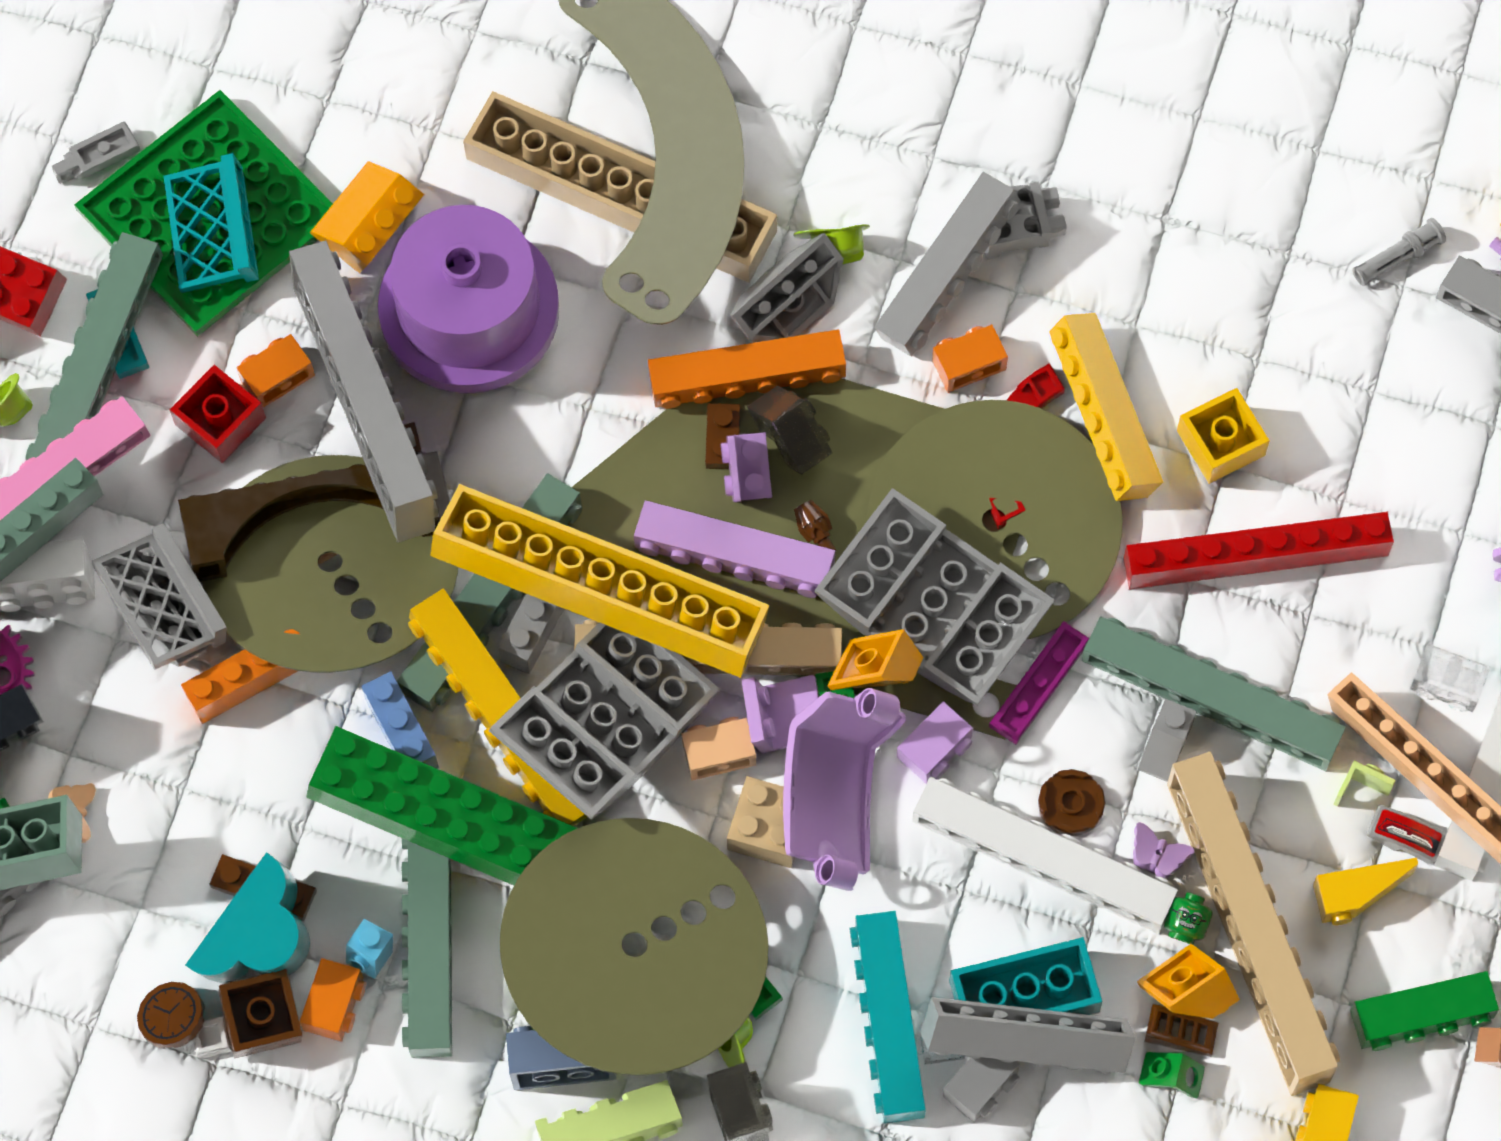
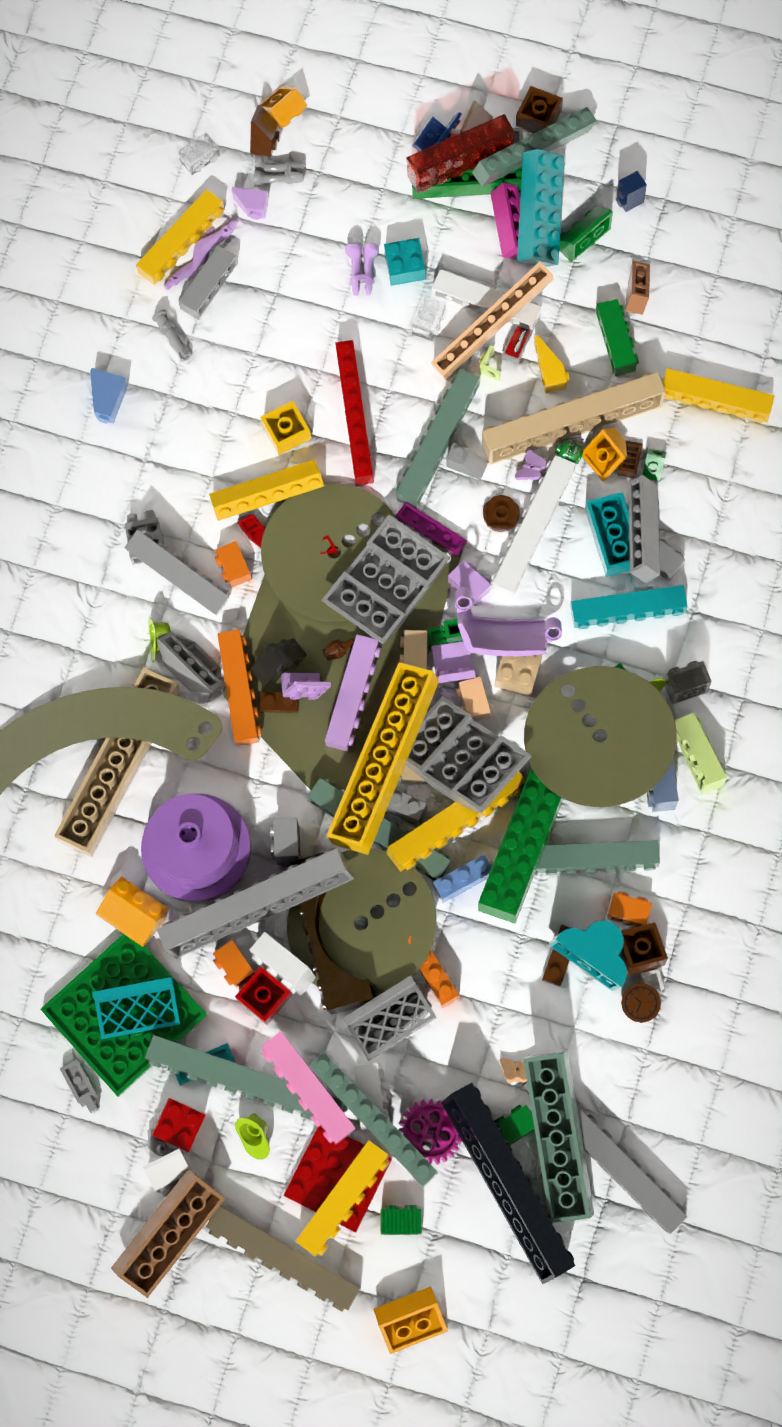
camera: 85 degrees left, 5 degrees up
(264, 435) = (282, 964): none -> white brick
(369, 948) = (599, 889): medium azure brick -> none
(473, 443) = (286, 839): none -> light grey brick
(877, 661) = (427, 610): light orange slope -> none
(1279, 151) = (107, 394): none -> medium blue slope

